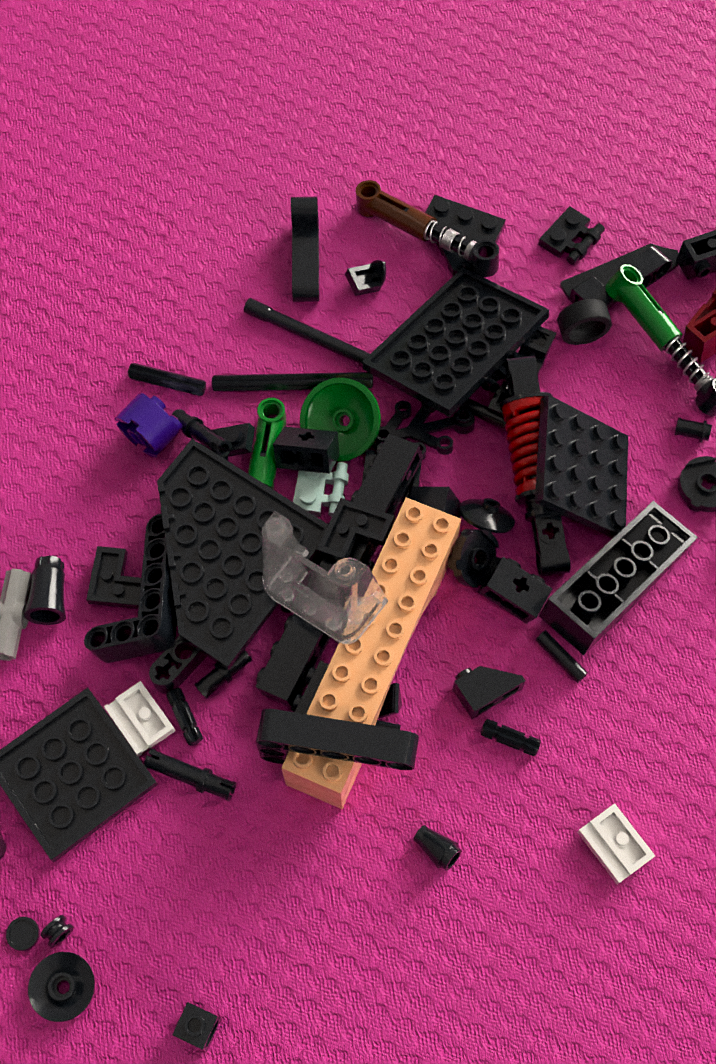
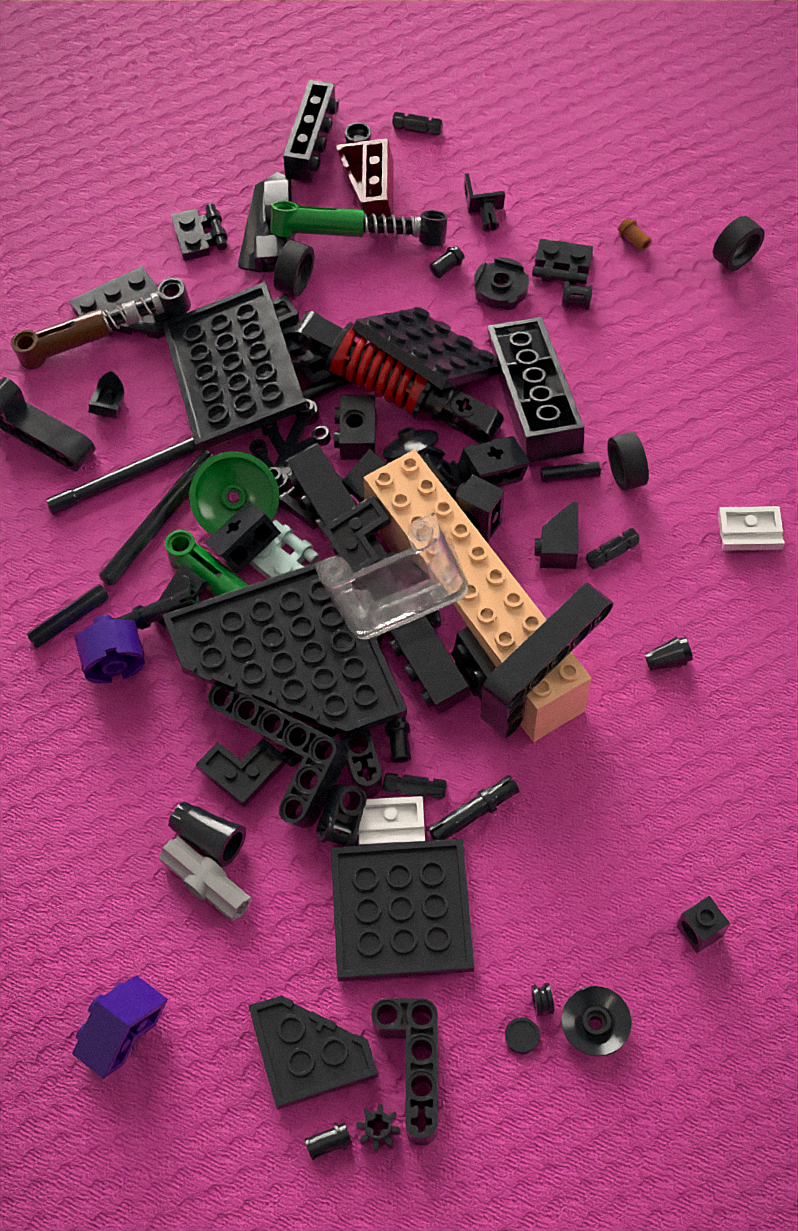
camera: 55 degrees left, 5 degrees down
(112, 679) = (341, 818): none -> black piece
(460, 605) = (482, 505): none -> black brick
(467, 479) = (355, 412): none -> black brick
(599, 696) = (628, 461): none -> black tyre

